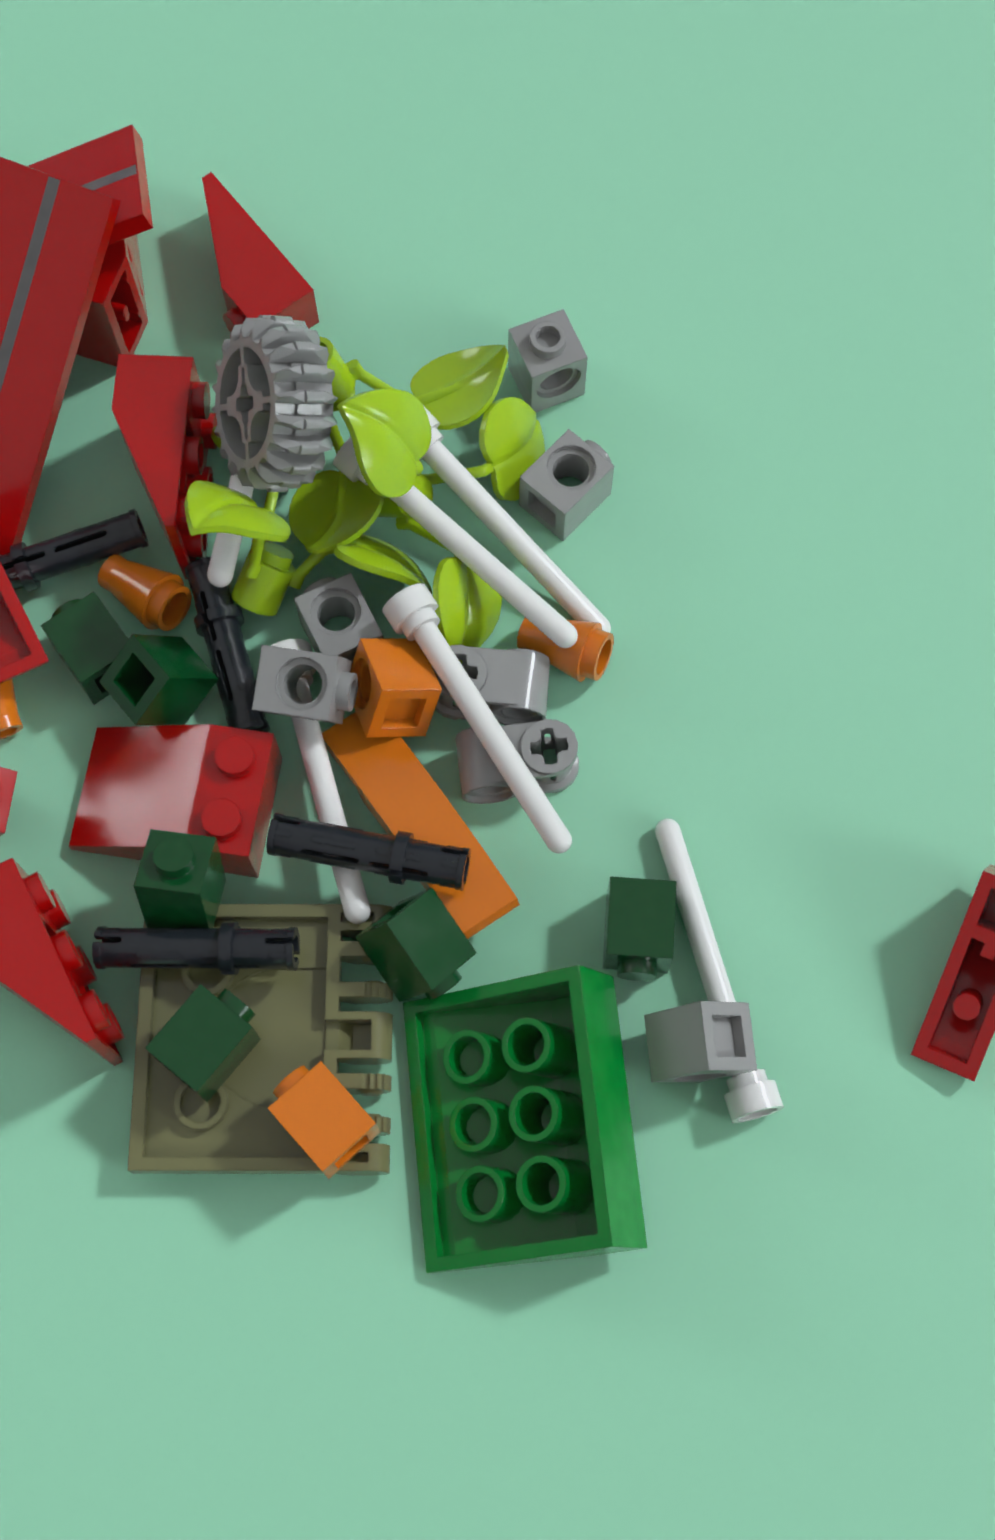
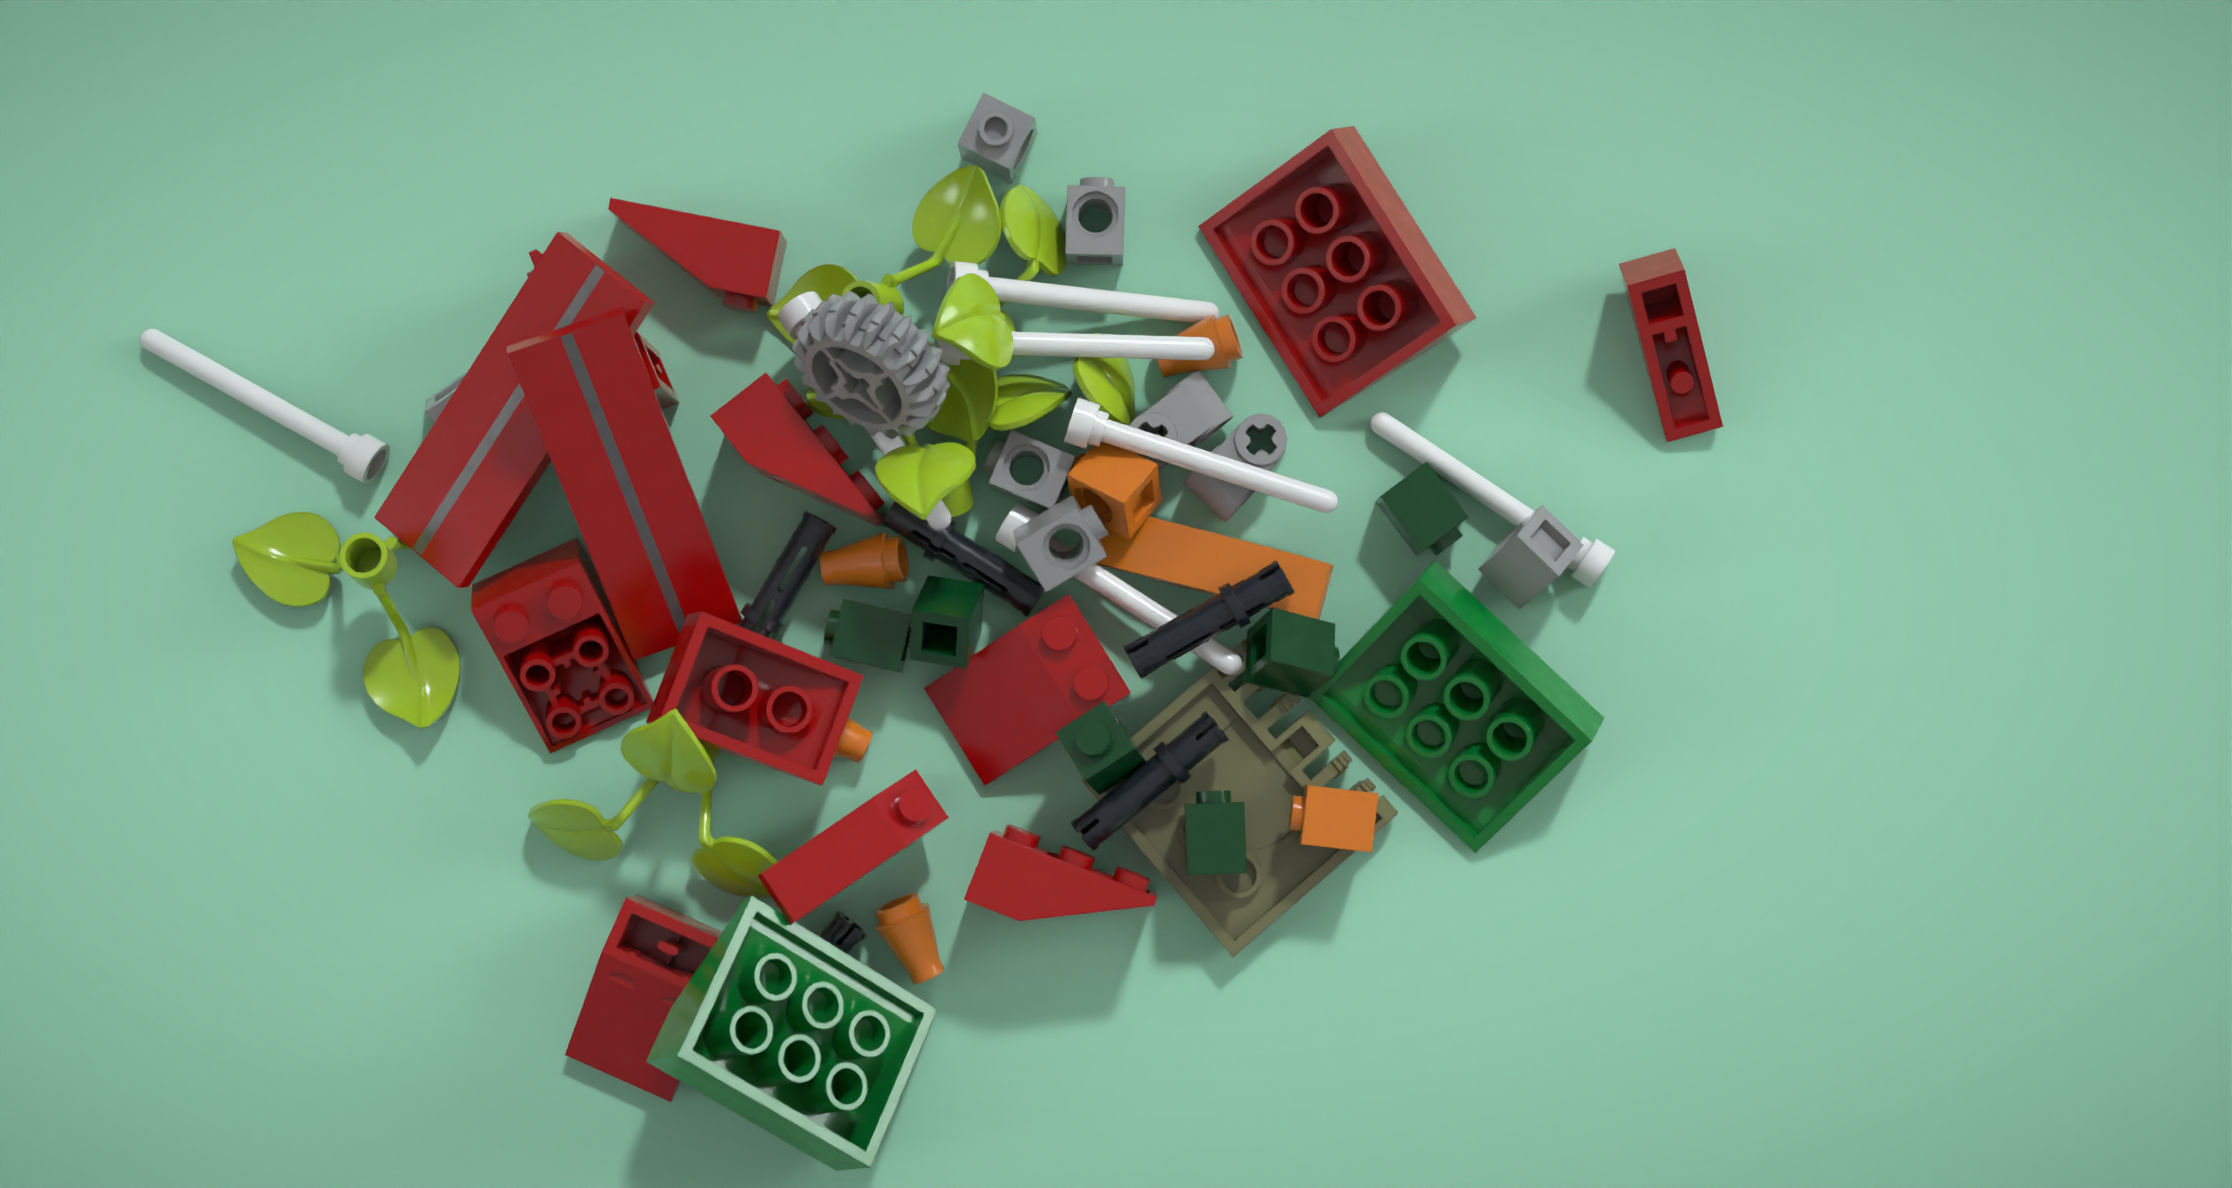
camera: 40 degrees left, 15 degrees up
(737, 675) = (1336, 270): none -> red slope

